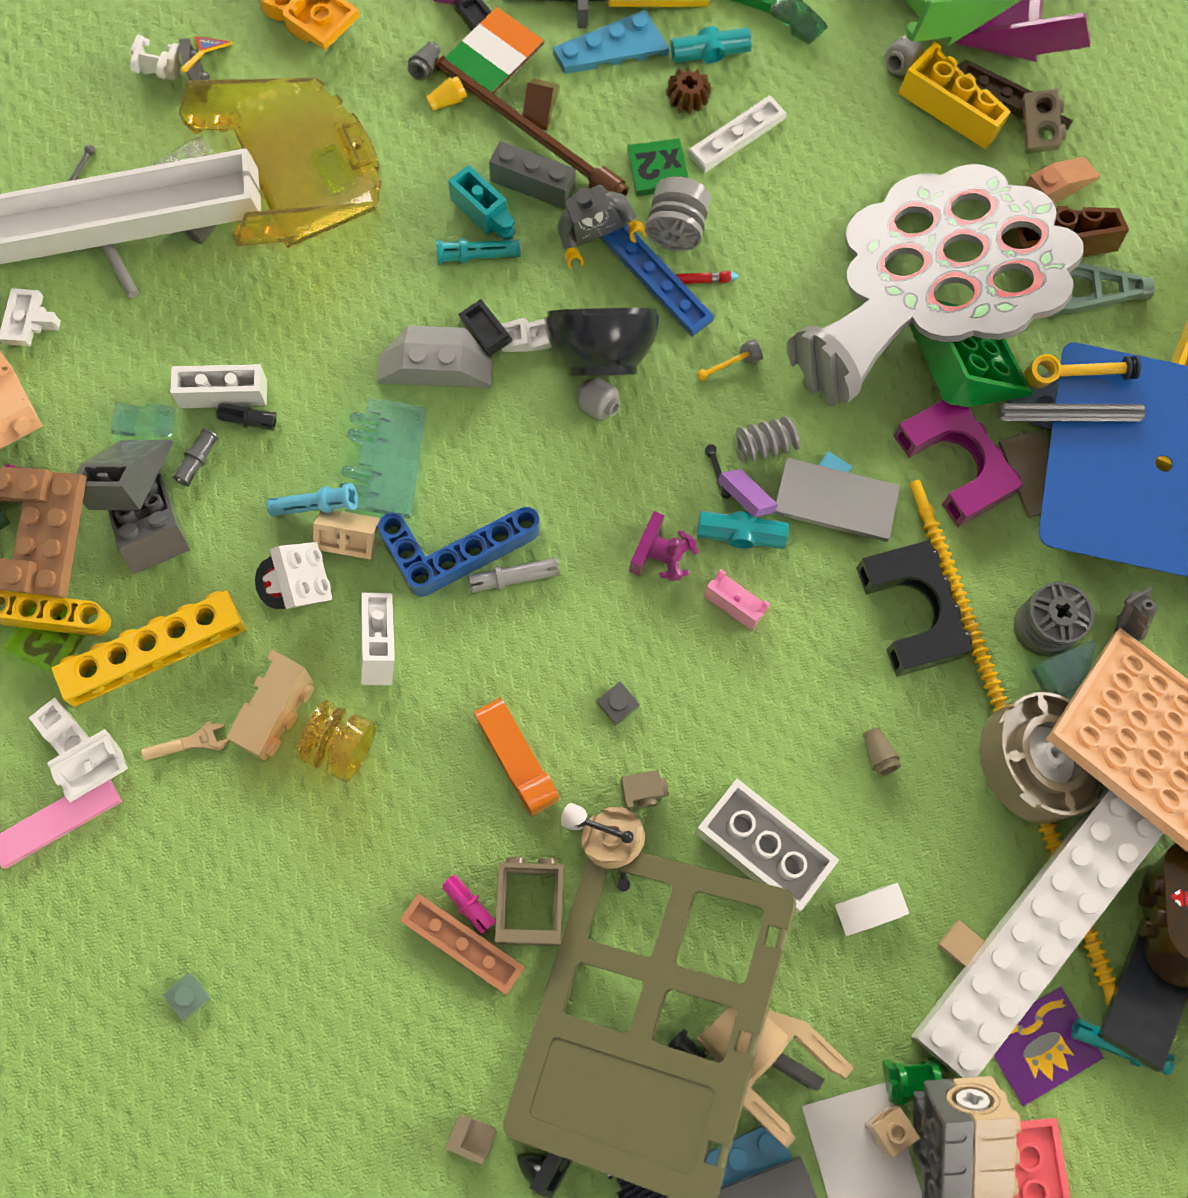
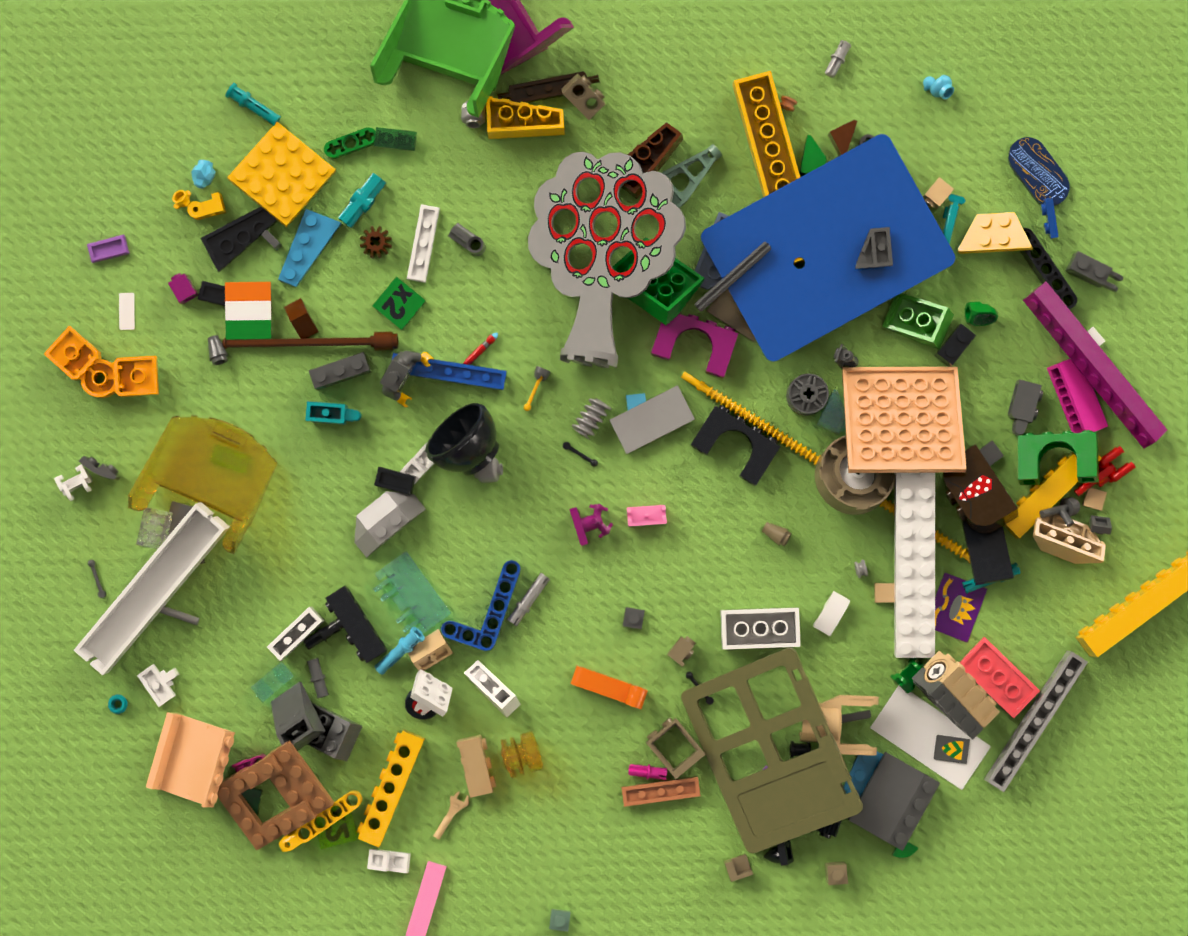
camera: 35 degrees left, 15 degrees up
(87, 765) = (418, 865): white hinge -> none
(204, 45) = (90, 446): piece -> none
(294, 436) = (356, 624): none -> black brick
(447, 94) = (248, 360): yellow cone -> none
(462, 250) = (344, 447): teal pin -> none
(575, 818) = (662, 691): hinge -> none
(607, 849) = (687, 685): tan tile -> none
(678, 213) = (439, 330): light grey wheel -> none
(742, 530) = (619, 477): teal piece -> none
(747, 493) = (605, 456): medium lavender tile -> none
(790, 163) = (466, 239): none -> dark grey piece
(892, 1131) = (916, 706): tan brick -> none
(955, 885) = (861, 568): none -> light grey bush
(1063, 178) = (621, 120): nougat slope -> none
(1129, 368) = (743, 225): yellow piece -> none

